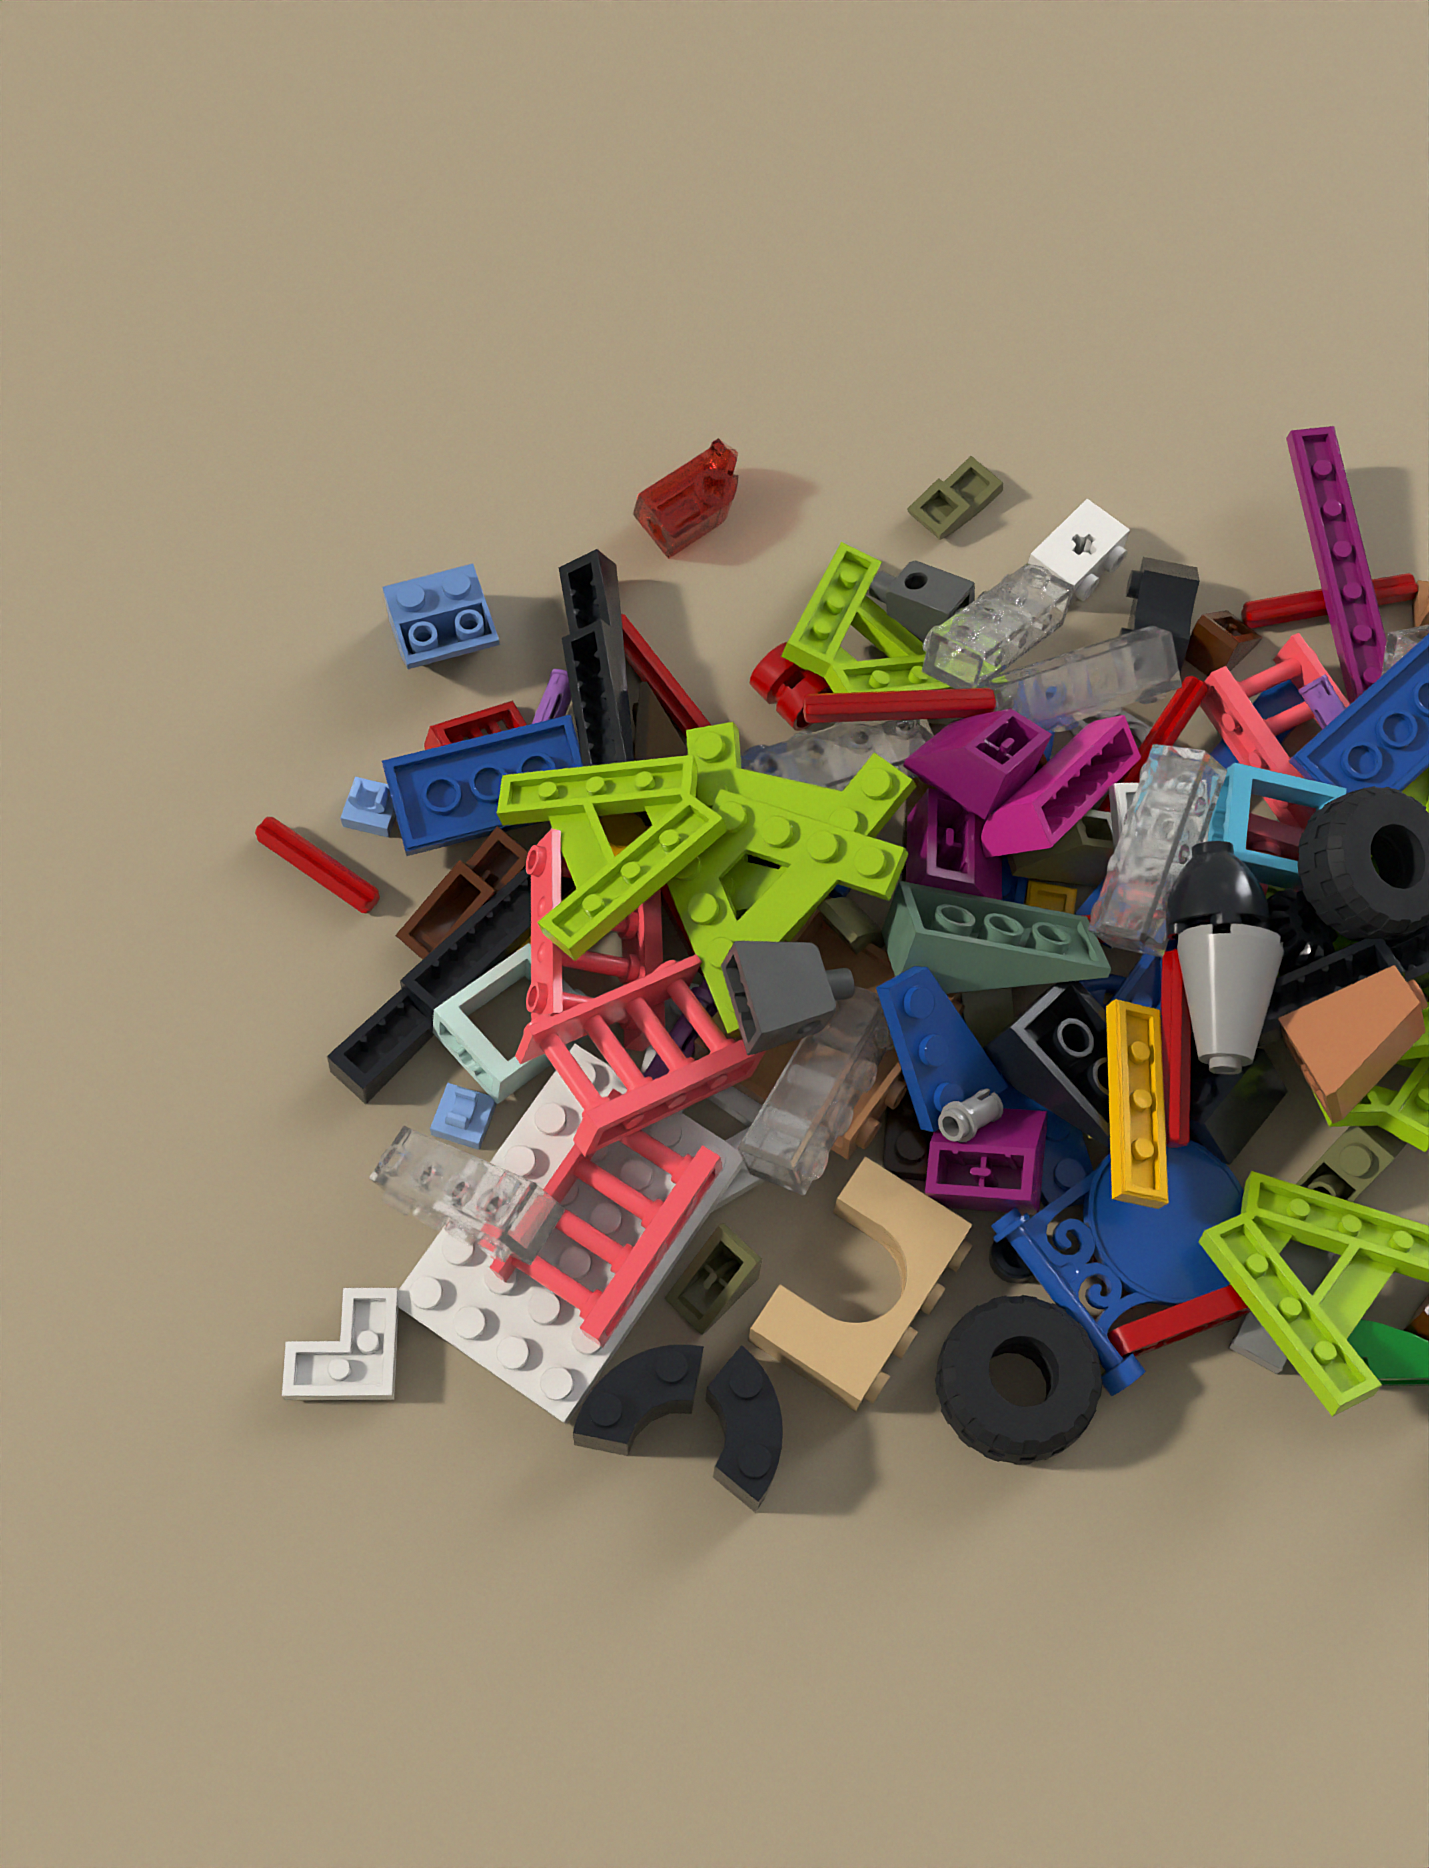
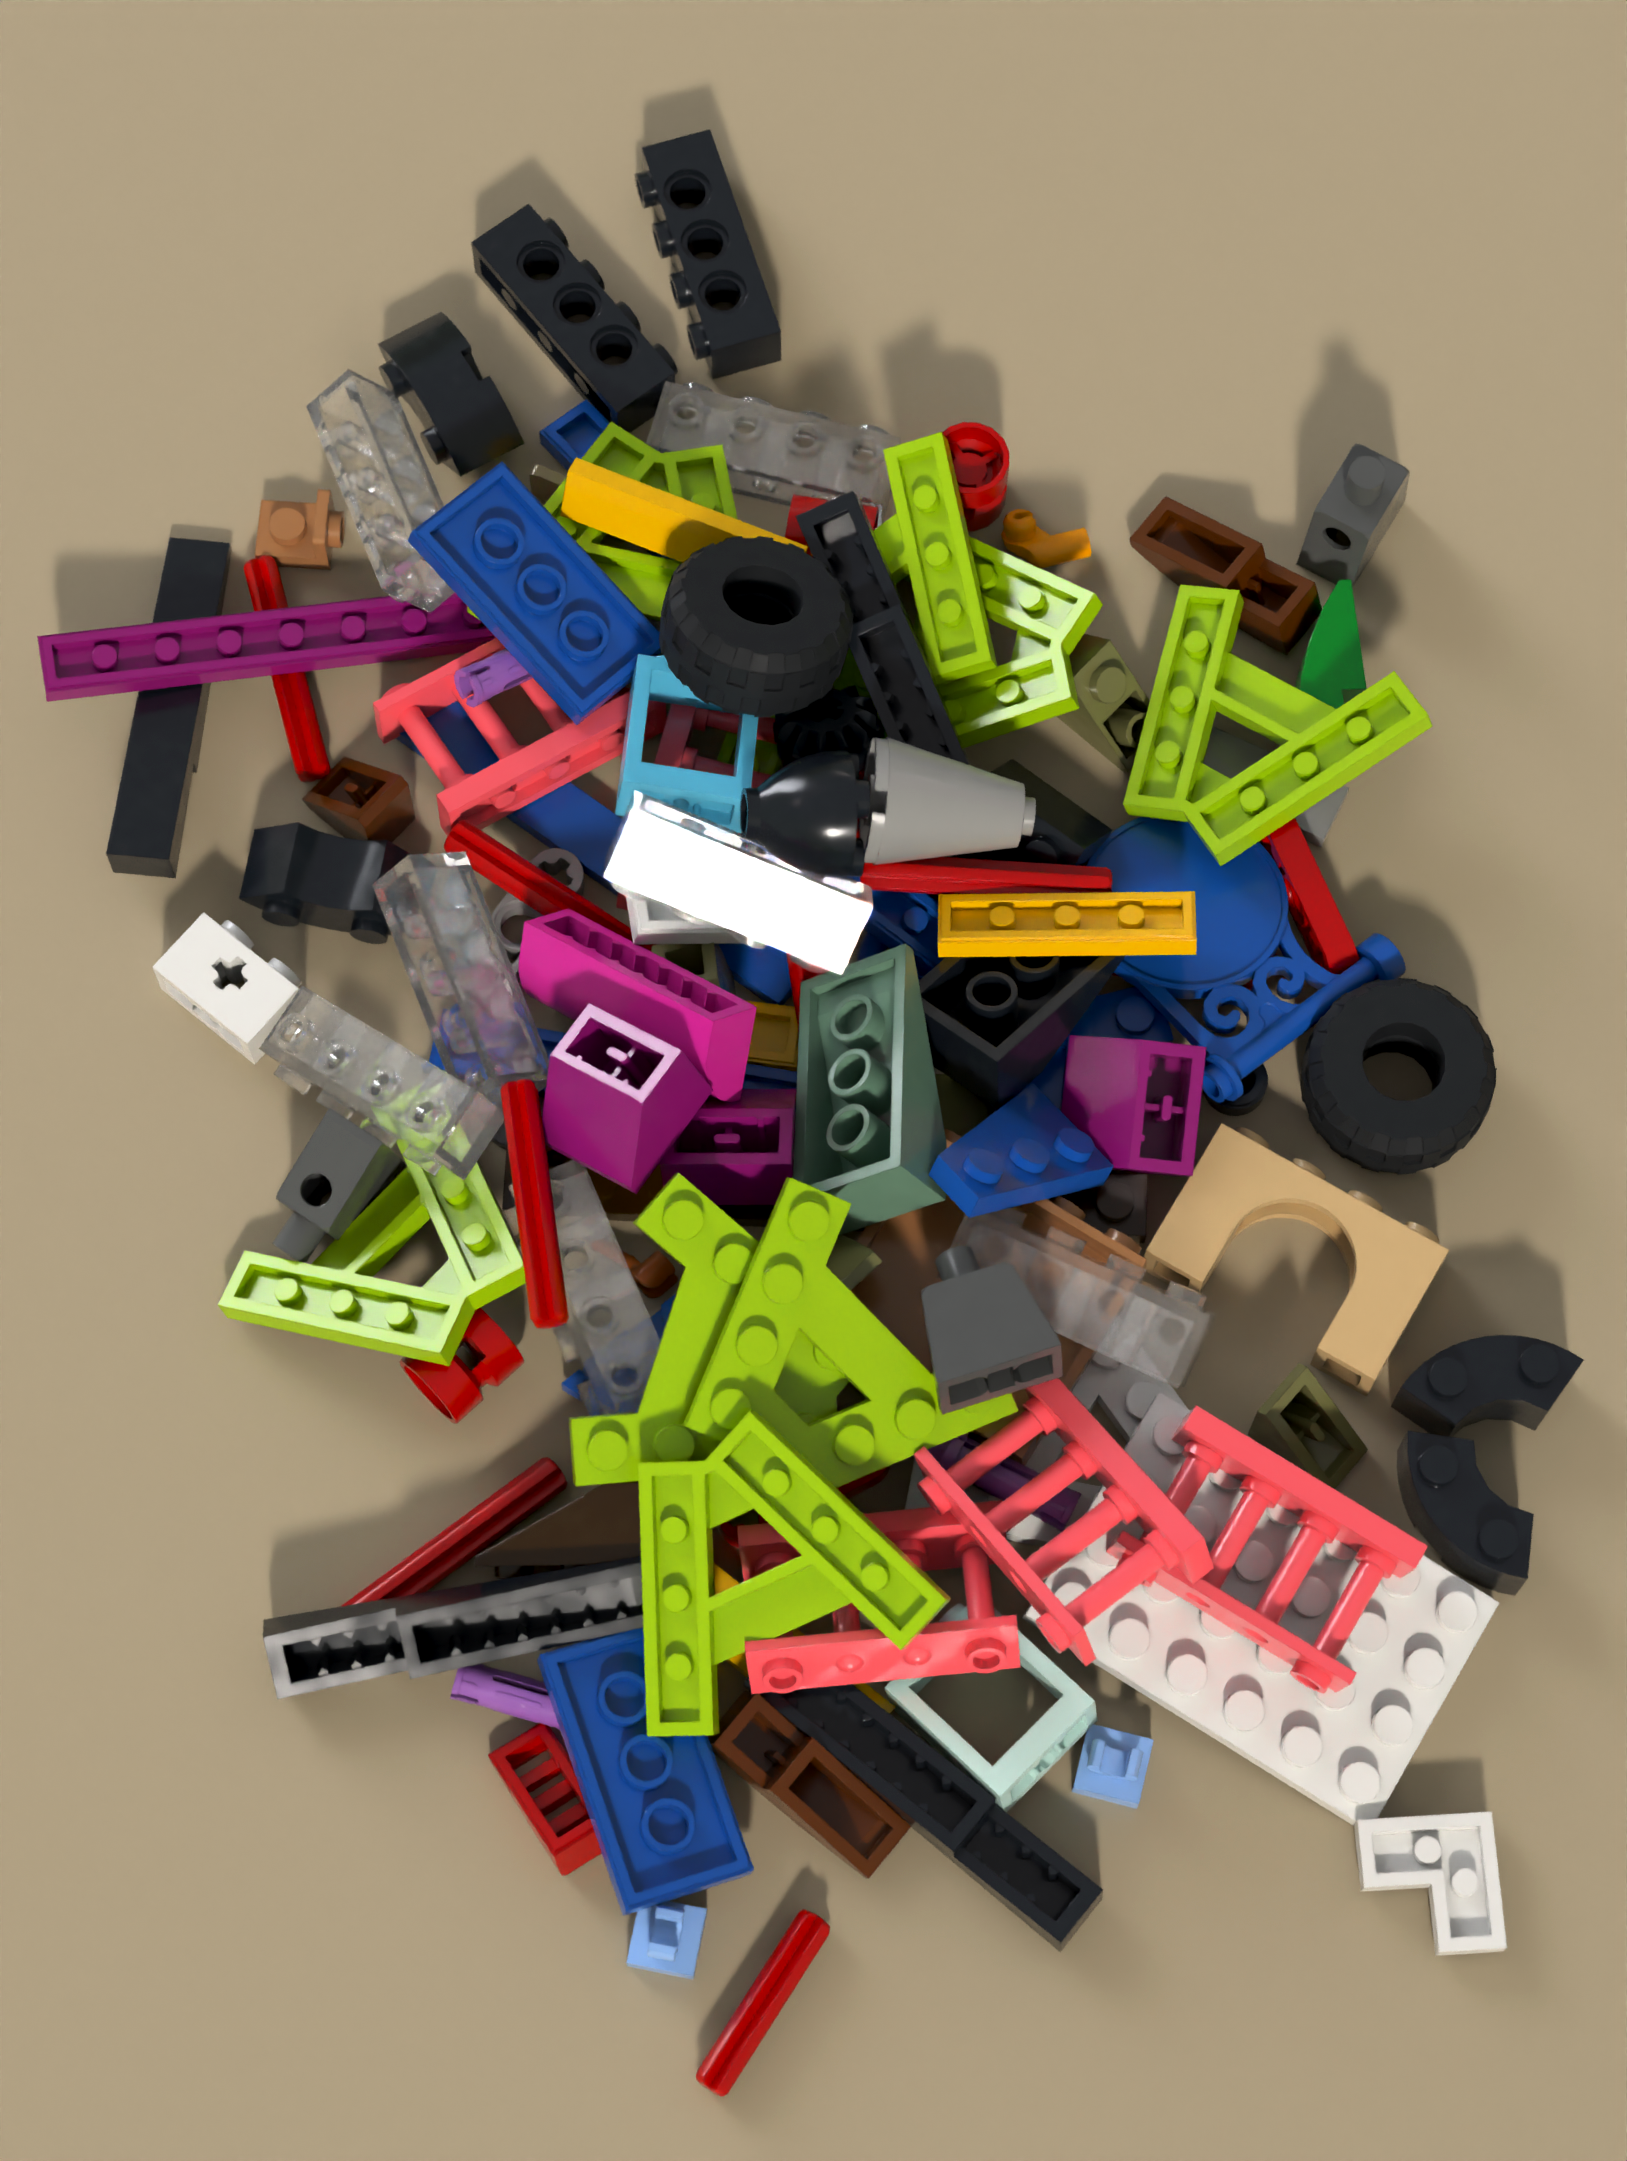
camera: 90 degrees left, 5 degrees up
(439, 616) = (381, 1858): medium blue slope -> none
(466, 1195) = (1256, 1726): clear brick -> none
(689, 499) = (164, 1536): clear red piece -> none
(957, 499) = (129, 1151): olive slope -> none
(962, 1119) = (1107, 1127): light grey pin -> none
(1278, 522) = (167, 724): none -> black slope
(1354, 1037) = (983, 668): nougat slope -> none

